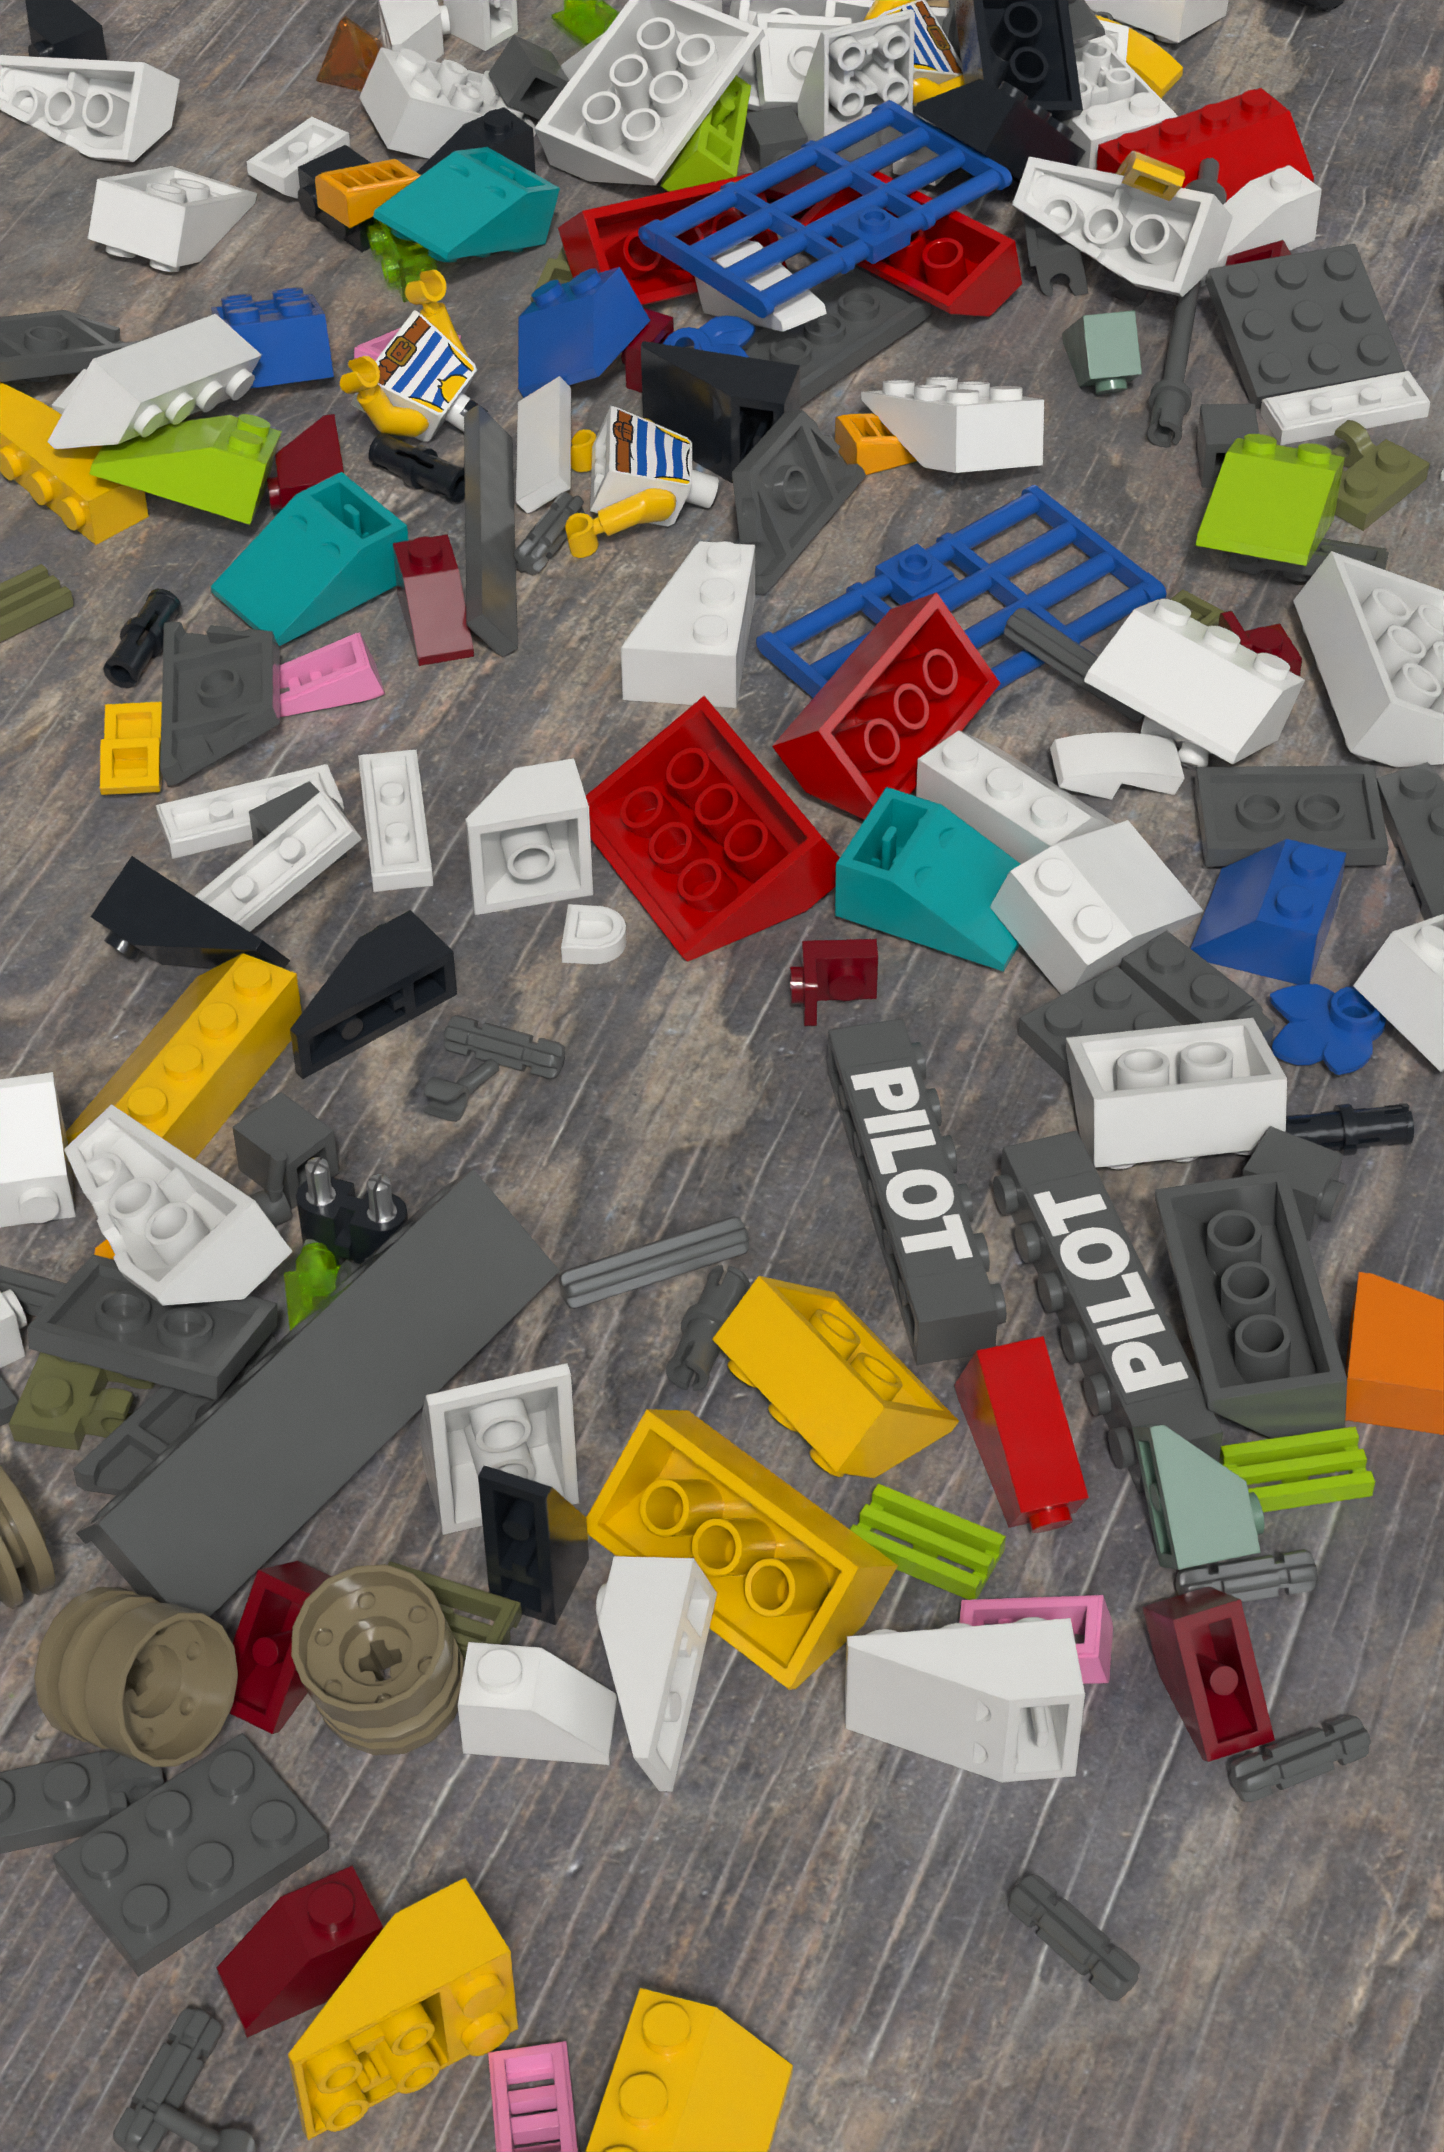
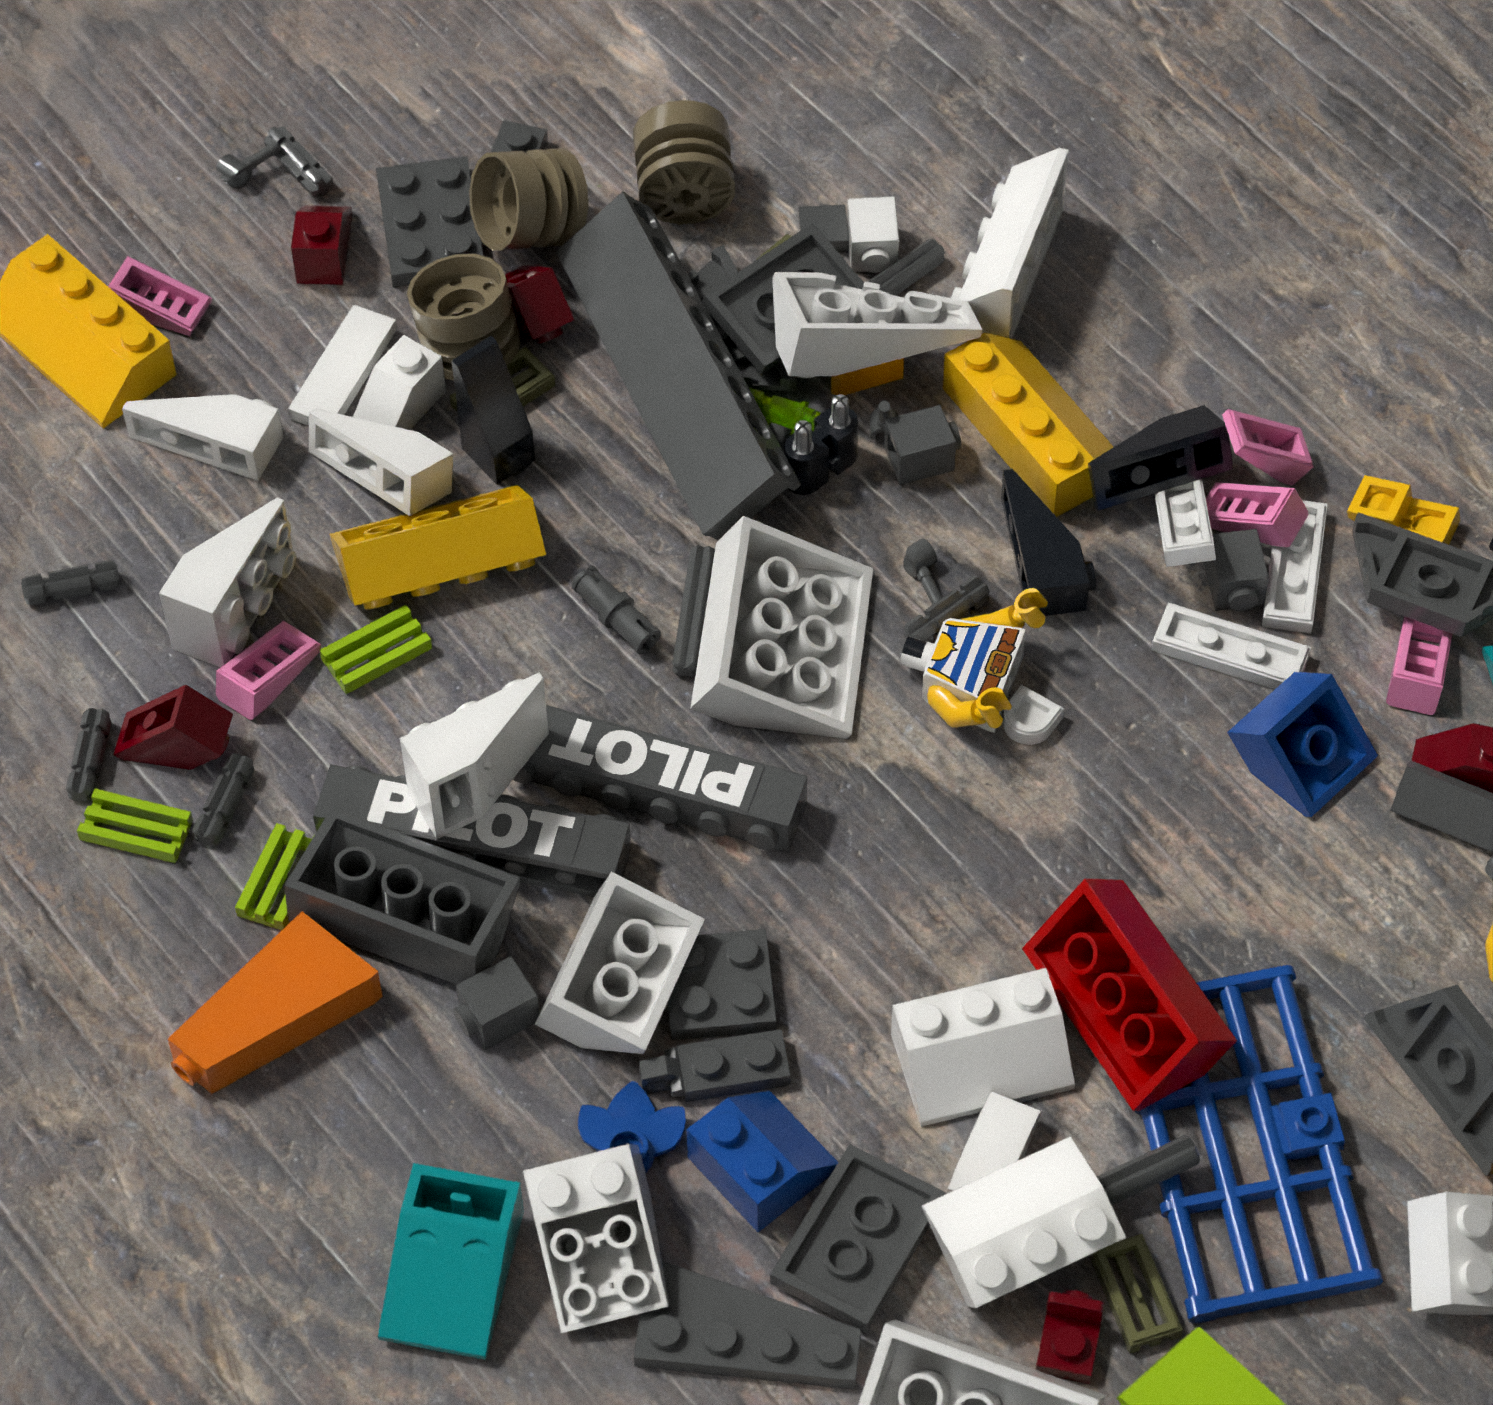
camera: 120 degrees right, 10 degrees up
(115, 842) = (1269, 446): none -> bright pink slope
(209, 803) = (1282, 507): none -> bright pink slope
(411, 2005) = (241, 252): yellow slope -> none
(483, 717) = (1304, 741): none -> blue slope
(503, 1423) = (576, 429): white slope -> none
(516, 1815) = (344, 364): none -> white tile
(531, 840) = (1121, 691): white slope -> none
(573, 980) = (975, 662): none -> torso
(644, 1164) = (782, 634): none -> white slope
(695, 631) = (1323, 928): white wedge -> none
(708, 836) = (1075, 820): red slope -> none
(724, 1891) = (212, 429): none -> white slope
(830, 1378) = (521, 638): yellow slope -> none
(834, 972) = (881, 827): dark red bracket -> none
(926, 880) = (925, 936): teal slope -> none
(1023, 1434) = (378, 711): red slope -> none
(1059, 1254) = (473, 754): none -> white slope
(1091, 903) = (833, 1028): white slope -> none
(1194, 1502) = (279, 773): slope -> none
(1334, 1605) = (138, 818): none -> lime tile
(1354, 1129) = (527, 1078): black pin -> none

